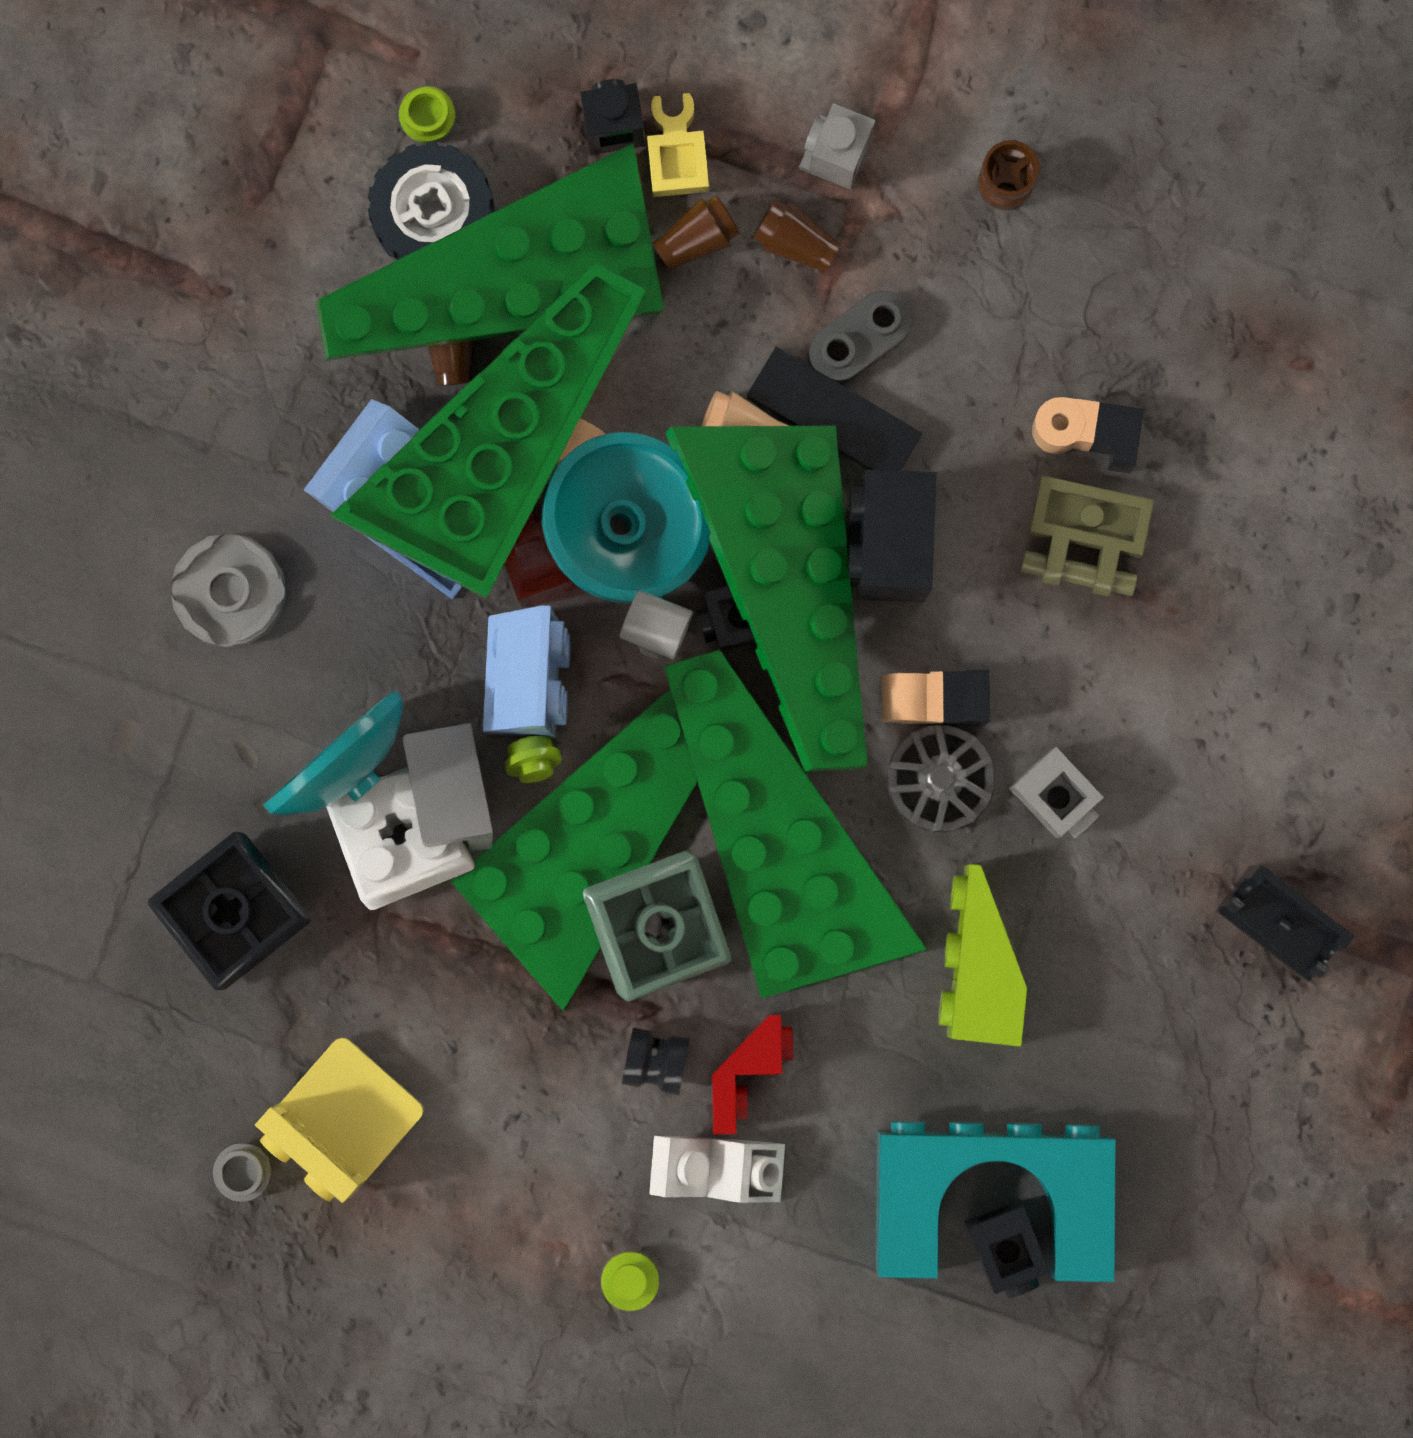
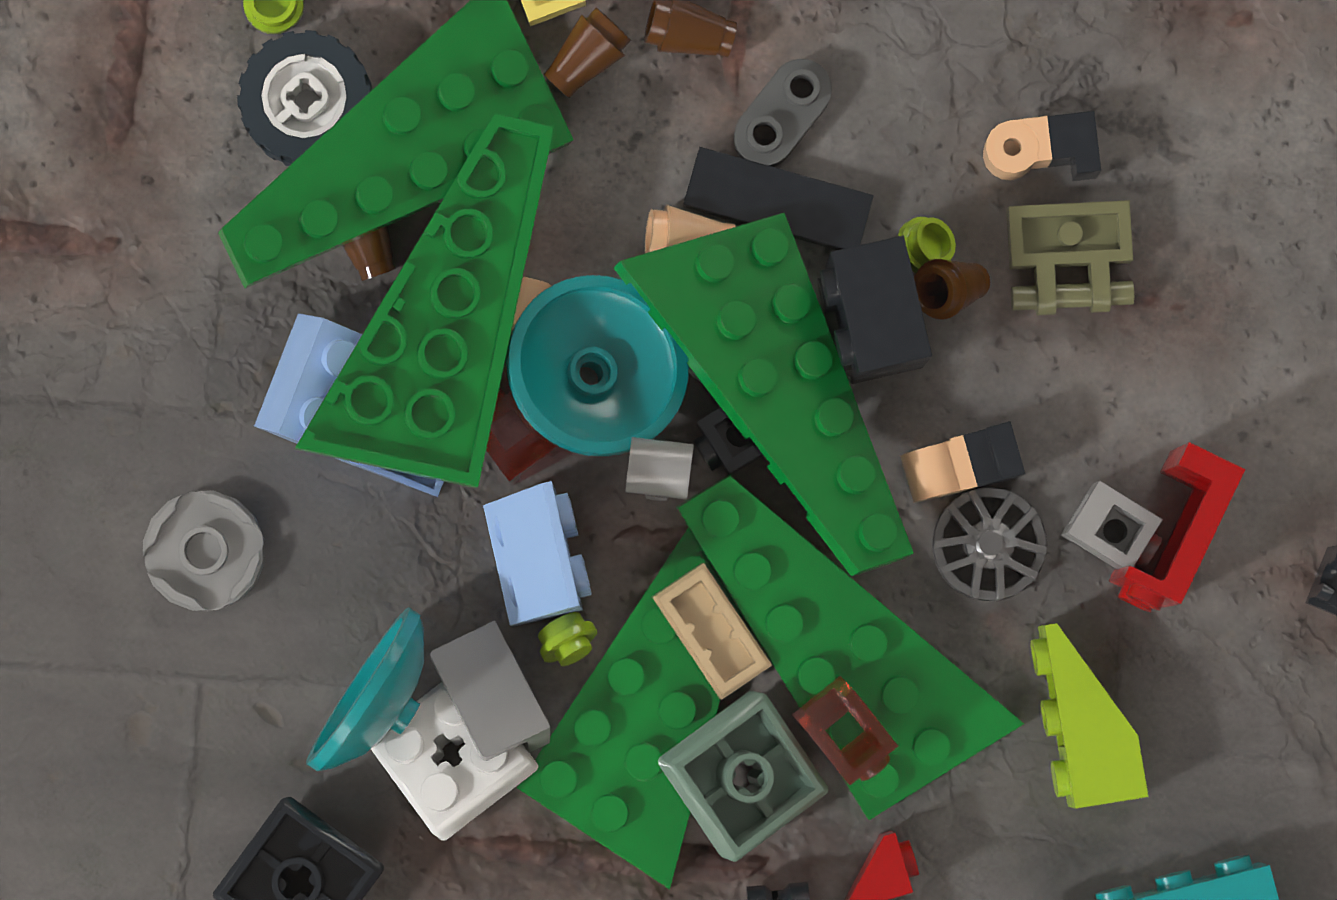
camera: 25 degrees left, 0 degrees up
(665, 786) = (711, 631): none -> tan plate
(770, 937) = (867, 752): none -> clear red window
(958, 491) = (927, 240): none -> lime plate
(967, 533) = (949, 286): none -> reddish brown cone
(1159, 776) = (1212, 486): none -> red panel

